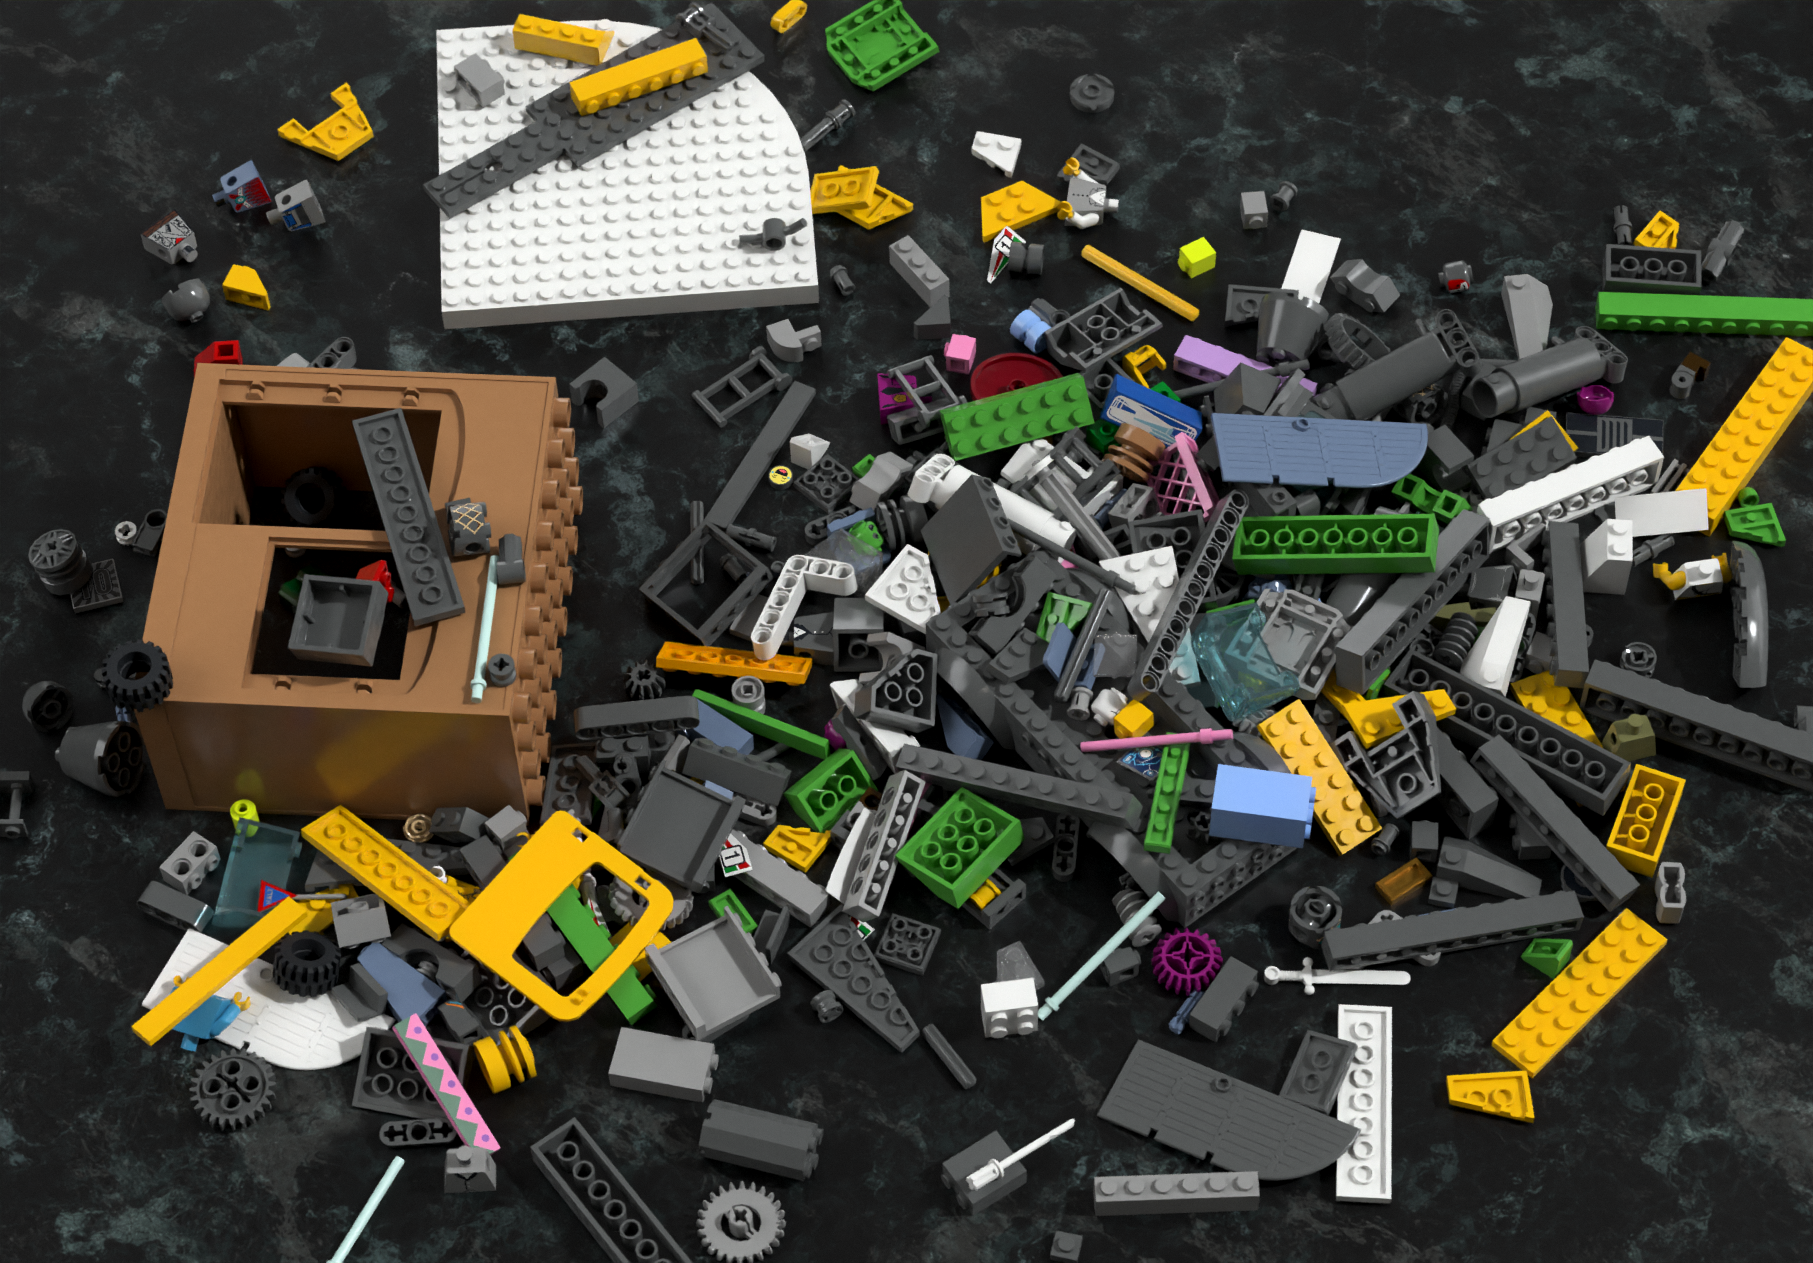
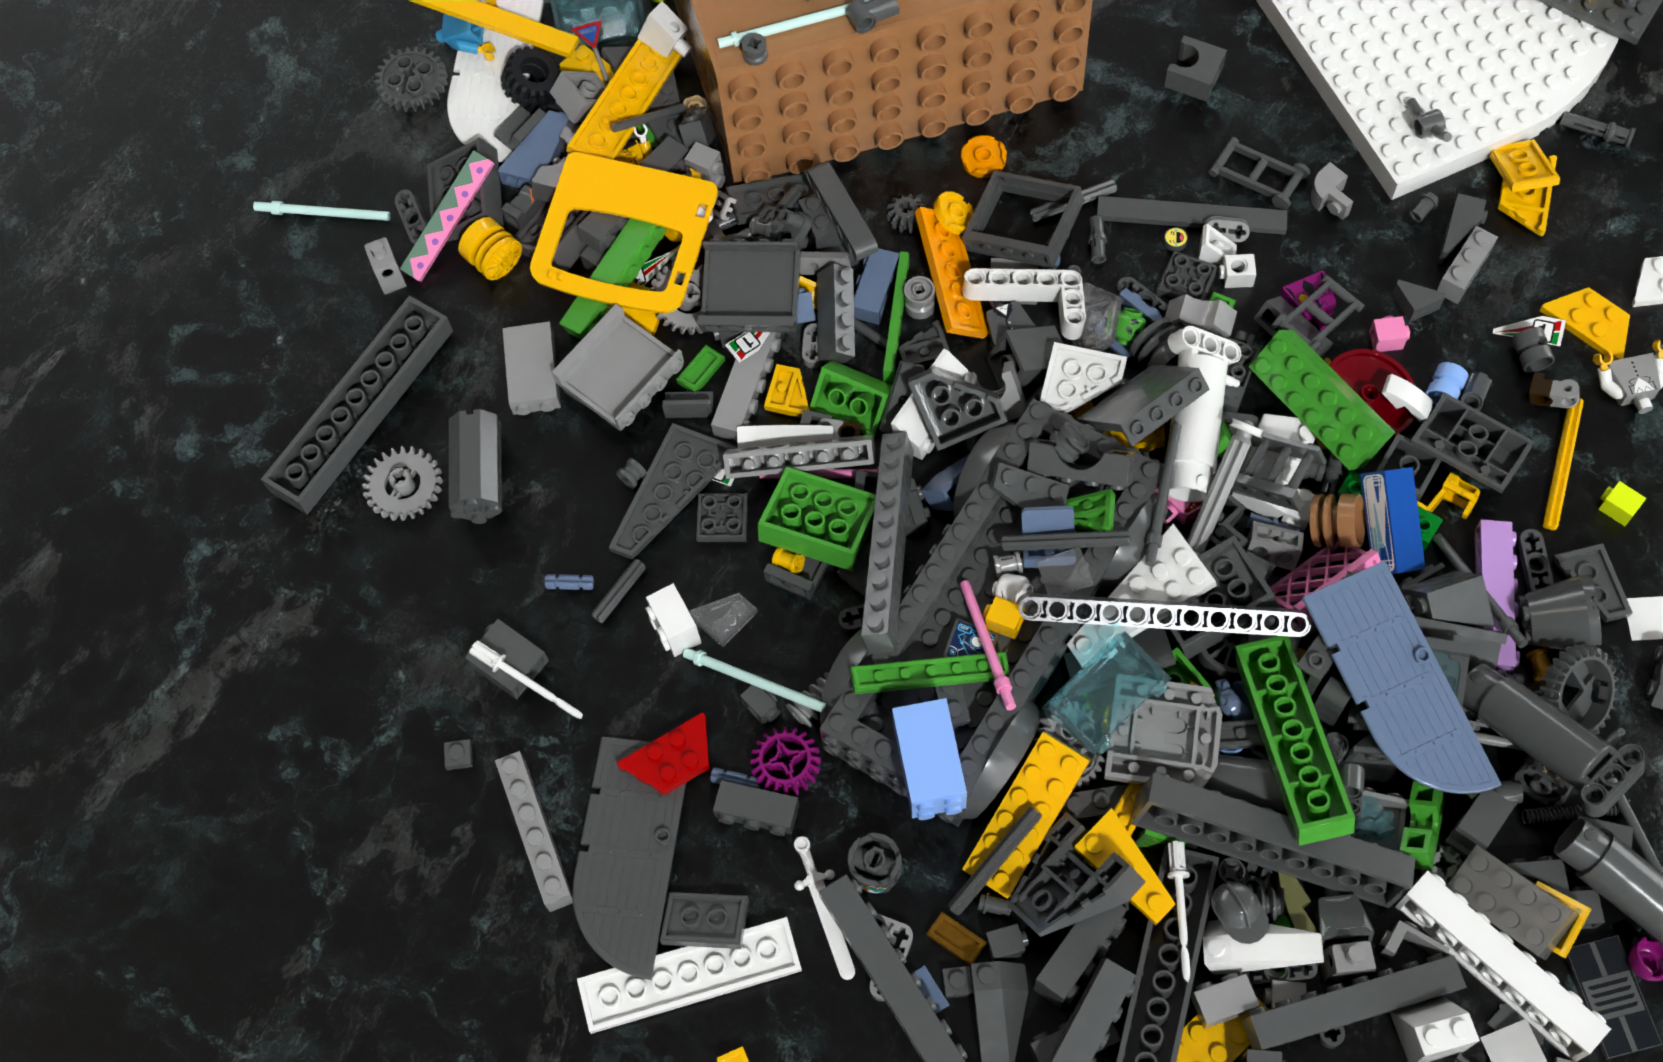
camera: 75 degrees right, 10 degrees up
(332, 812) = (665, 32): none -> white torso
(427, 860) = (648, 117): none -> dark grey bar
(608, 599) = (983, 156): none -> light orange tile
(667, 639) = (953, 212): none -> yellow tile
(789, 429) = (1230, 223): none -> light grey beam
(804, 710) = (924, 346): none -> dark grey wing
(841, 439) = (1245, 264): none -> white brick
(873, 258) = (1464, 217): none -> dark grey slope
(920, 1098) = (568, 581): none -> sand blue axle
(1033, 360) = (1403, 393): none -> white slope
(1074, 260) = (1553, 392): none -> leg
(1145, 1055) = (672, 757): none -> red wing
(1220, 331) = (1539, 554): none -> dark grey beam
(1318, 370) = (1539, 662): none -> pearl gold bush
(1351, 817) = (995, 860): none -> dark grey axle
(1415, 678) = (1178, 871): none -> white piece
(1466, 646) = (1240, 912): none -> dark grey piece
(1533, 688) = (1224, 1000): none -> light grey brick

